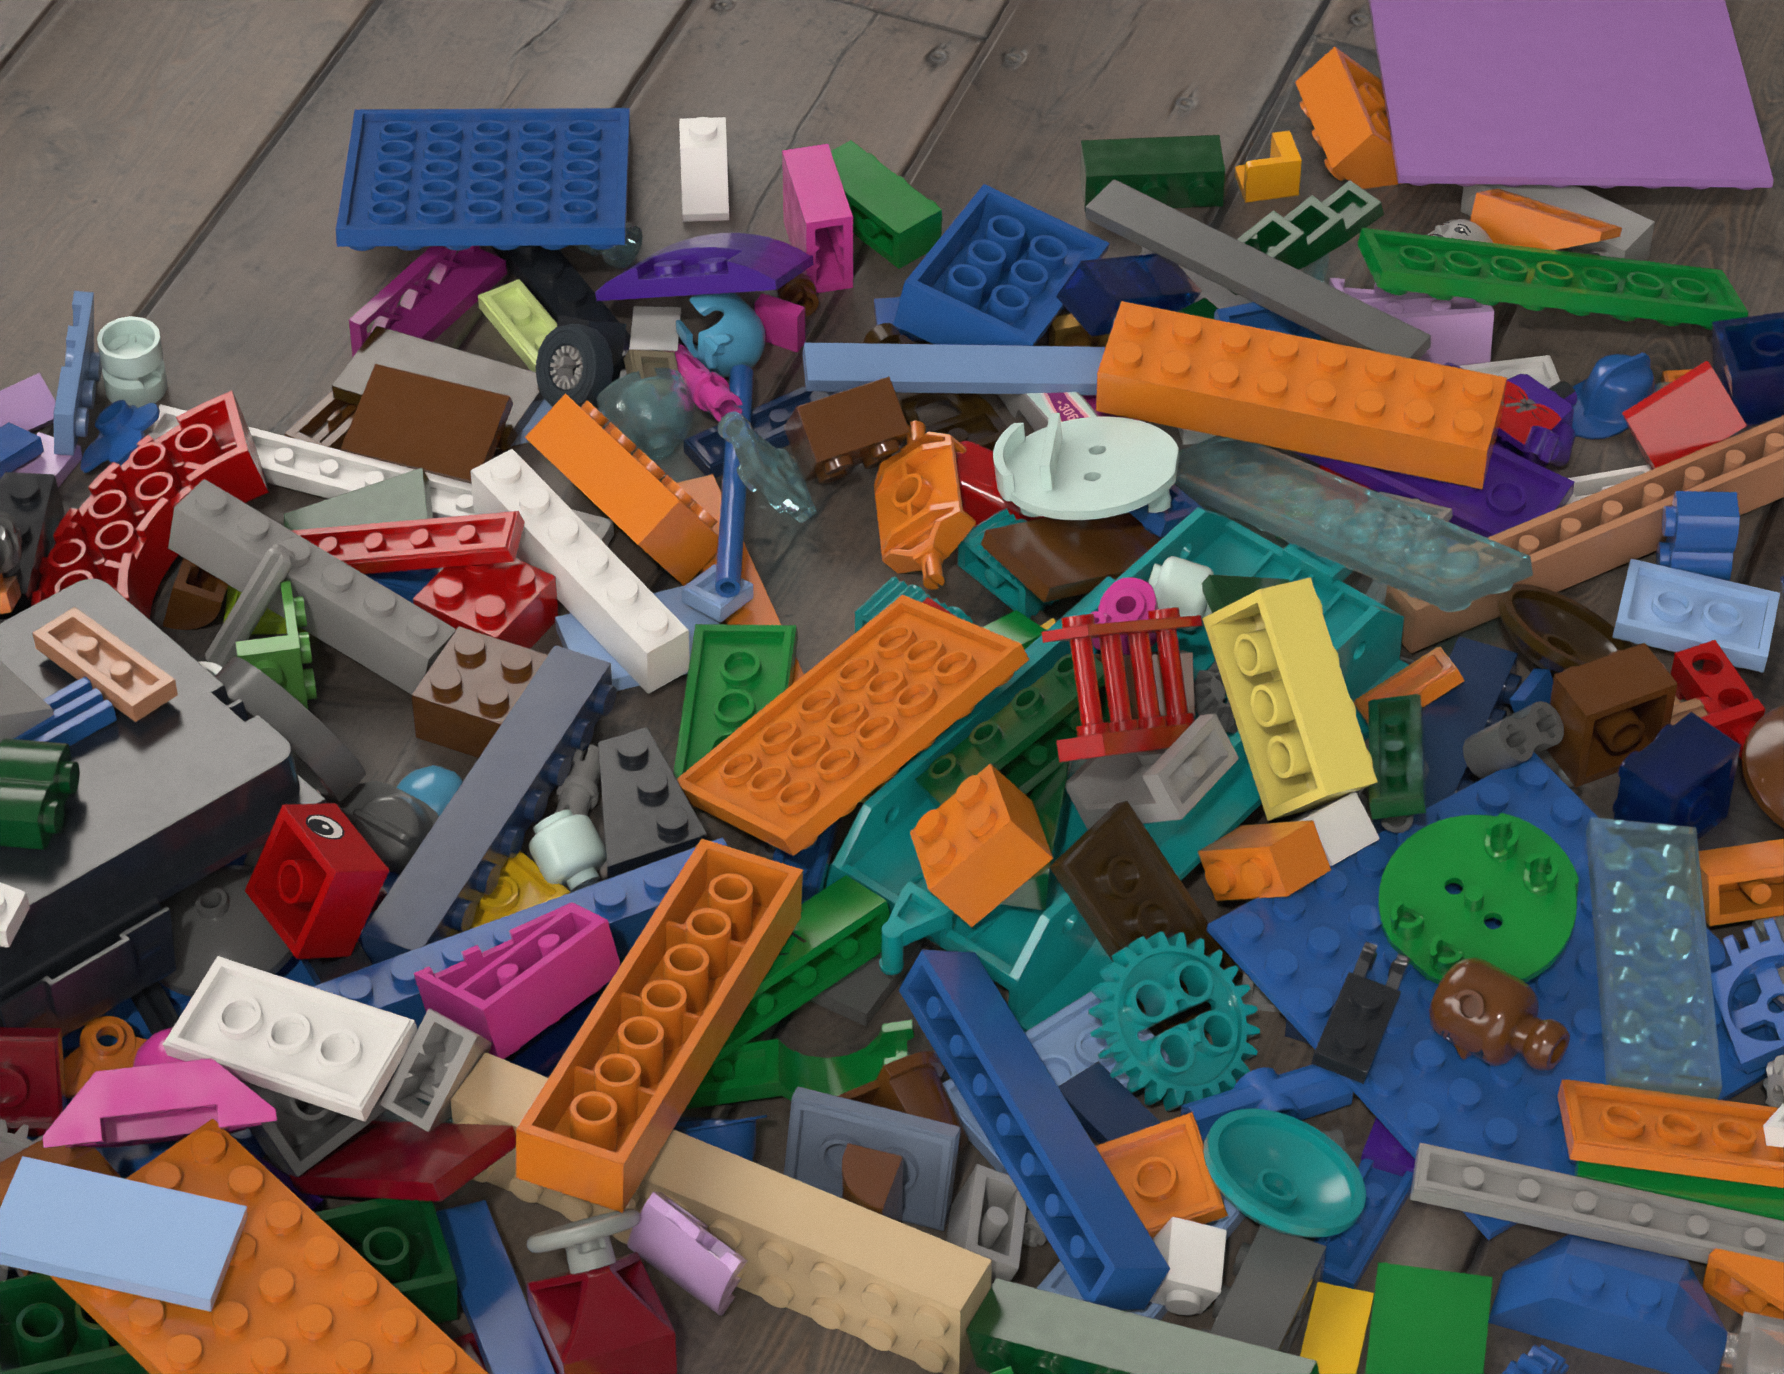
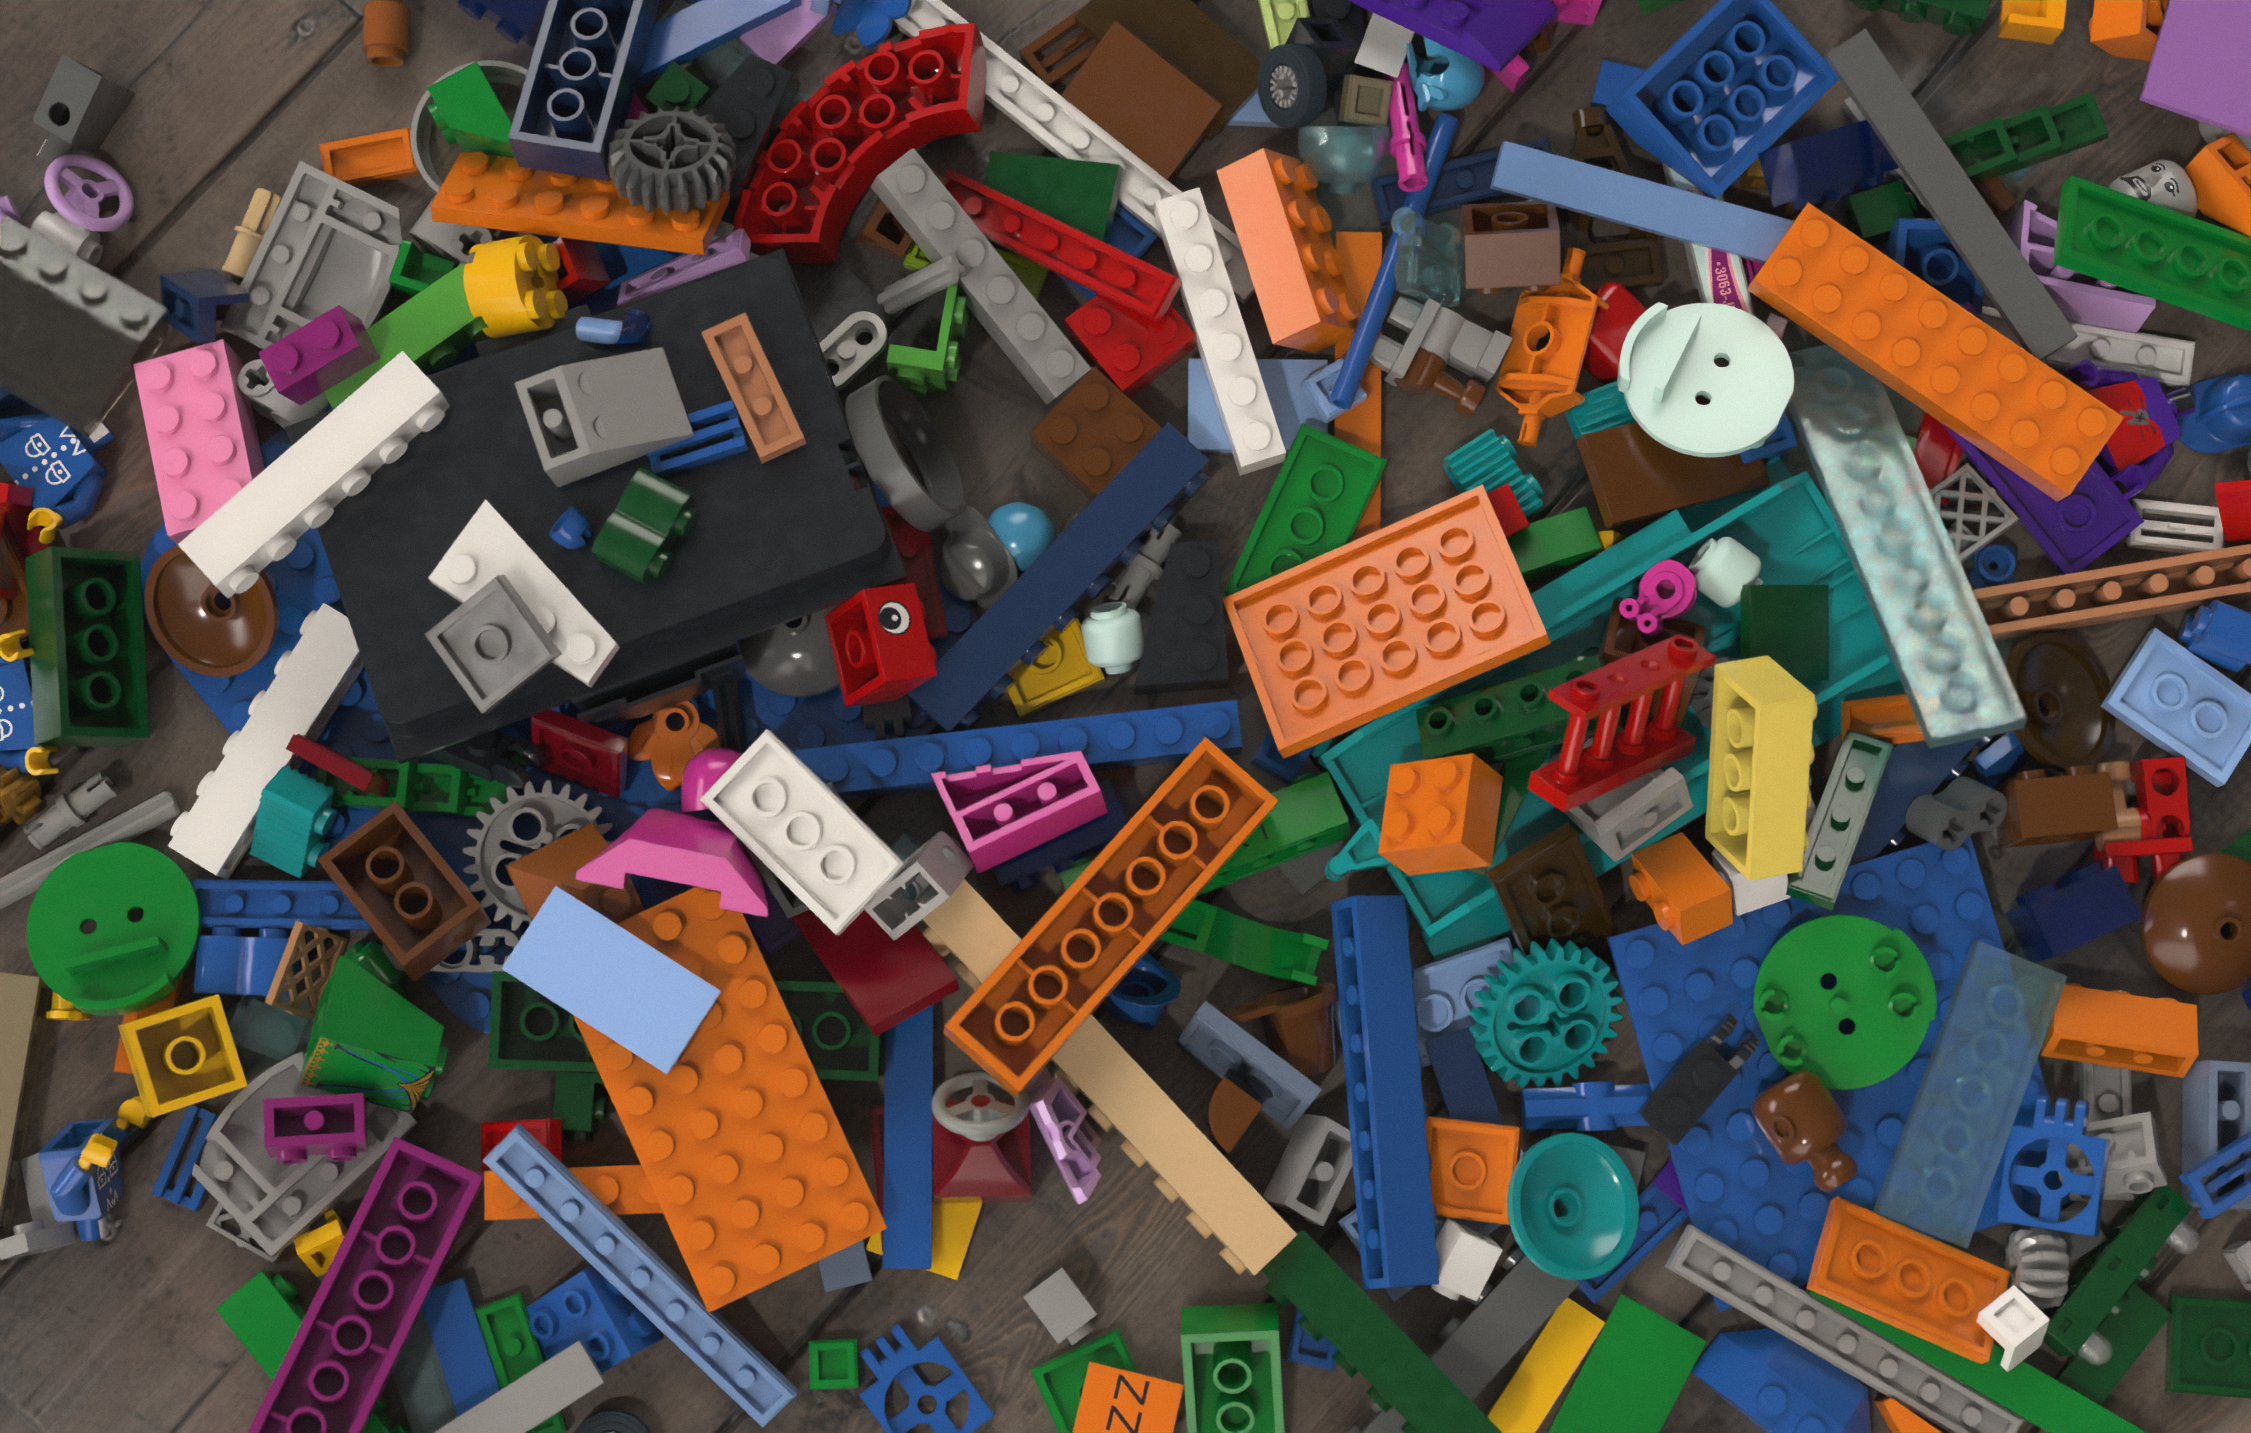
camera: 20 degrees right, 35 degrees up
(811, 542) = (1436, 340): none -> light grey hips

